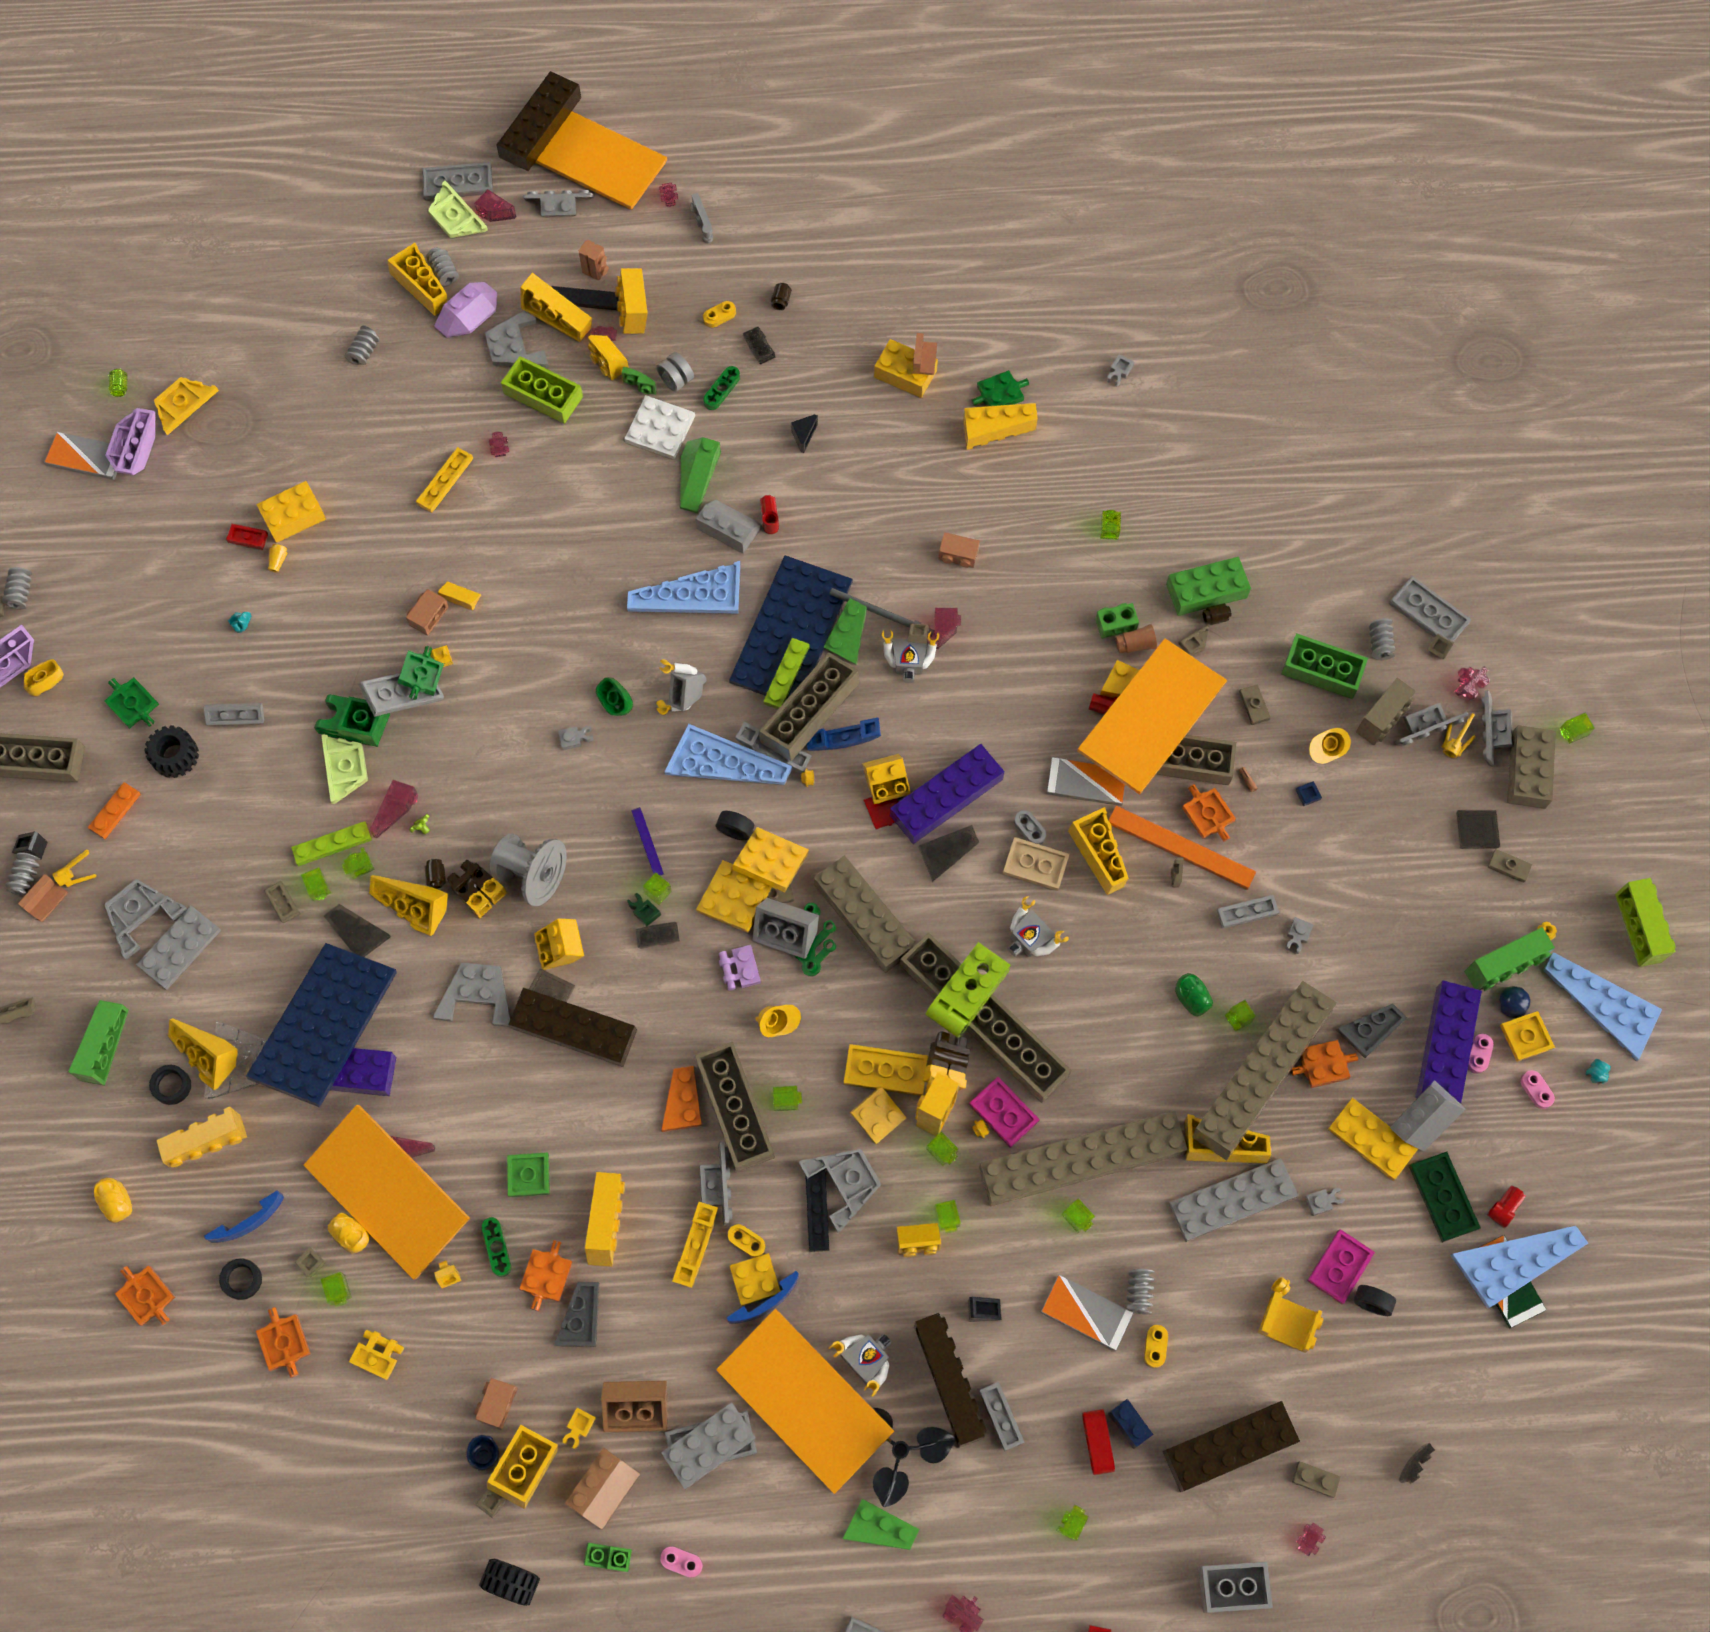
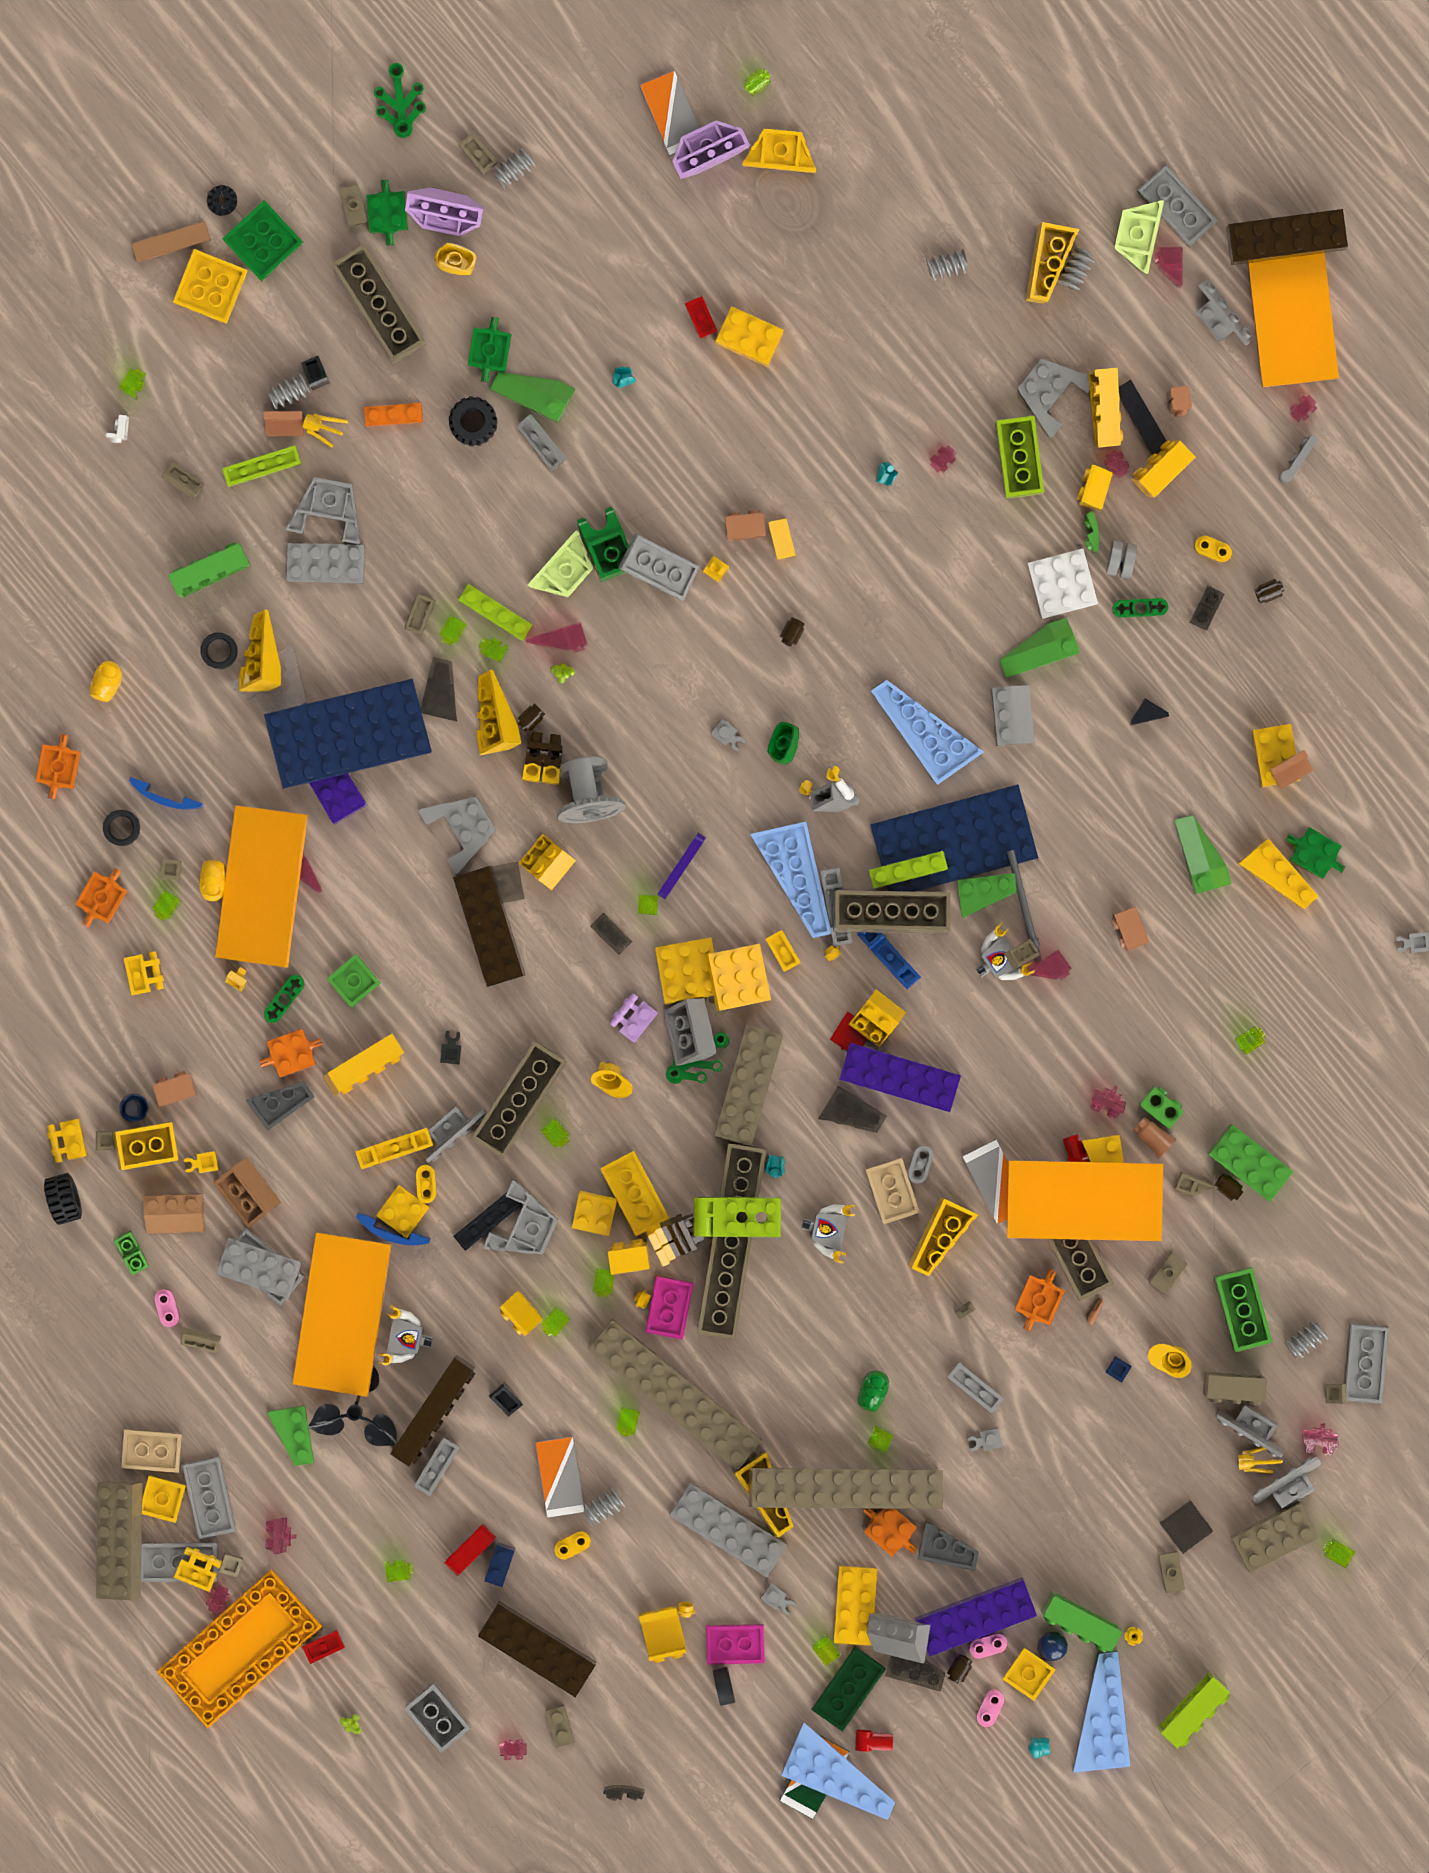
camera: 50 degrees right, 20 degrees up
(59, 940) = (261, 466): none -> lime plate
(201, 690) = (538, 394): none -> bright green wedge
(202, 1138) = (197, 711): yellow wedge -> none
(276, 557) = (701, 358): yellow cone -> none
(420, 673) = (685, 570): green plate -> none
(444, 480) = (875, 440): yellow plate -> none
(466, 1533) = (72, 1138): none -> yellow plate
(467, 310) = (1052, 327): lavender wedge -> none
(475, 489) = (886, 474): none -> teal arm
(535, 634) = (792, 632): none -> dark brown brick
(645, 912) = (623, 909): dark green plate -> none
(651, 1136) = (451, 1052): none -> pearl dark grey plate
(682, 1103) = (496, 1054): orange wing -> none
(733, 1551) = (200, 1340): none -> dark tan plate
(735, 825) = (744, 927): black tyre -> none
(769, 514) = (1048, 741): red piece -> none
(776, 813) = (783, 951): none -> yellow plate
(948, 471) = (1202, 860): none -> bright green wedge
(949, 940) = (775, 1166): none -> teal arm
(1077, 661) = (1110, 1099): none -> clear pink hips
(1182, 847) = (993, 1297): orange tile -> none
(1397, 1189) = (826, 1650): none -> clear neon green panel
(1466, 1128) = (915, 1673): none -> clear smoke wing
(1486, 1089) = (959, 1668): none -> dark brown brick

